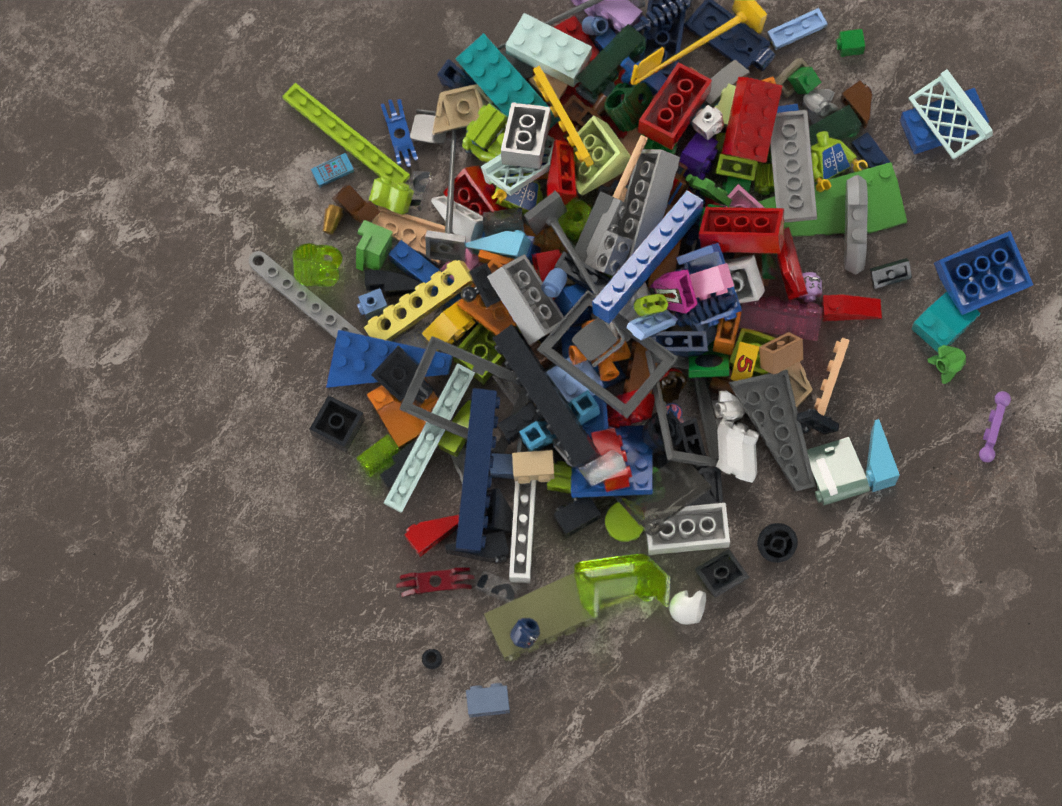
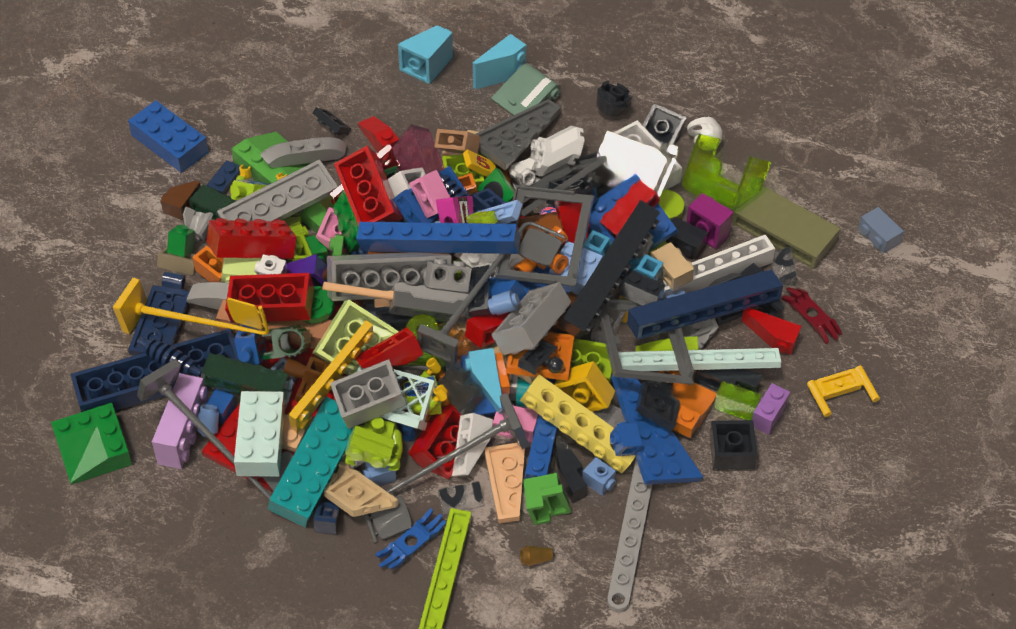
camera: 125 degrees left, 20 degrees down
(311, 268) = (610, 544): clear neon green piece -> none
(332, 170) = (483, 583): dark azure tile -> none
(348, 553) = (840, 384): none -> yellow plate
(355, 205) = (510, 538): reddish brown brick -> none
(355, 478) = (770, 408): none -> medium lavender brick
(381, 328) = (626, 439): none -> blue brick
(391, 195) = (483, 509): lime brick -> none
(428, 653) = (877, 281): black plate -> none
(525, 632) = (813, 212): dark blue head -> none
(577, 542) = (711, 217): none -> magenta brick
(603, 467) = (650, 197): clear slope -> none
(797, 28) = (125, 271): light blue plate -> none
(816, 421) = (495, 110): black plate -> none
(833, 367) = (449, 118): light nougat wing -> none
(850, 42) = (122, 227): green brick -> none
(927, 396) = (426, 53): none -> medium azure slope
(943, 322) = (353, 73): teal slope -> none
(948, 361) = (387, 55): bright green brick -> none
(963, 103) = (151, 112): light aqua fence -> none
(984, 273) = (295, 62): blue slope -> none
(1002, 400) = (424, 13): medium lavender plate -> none

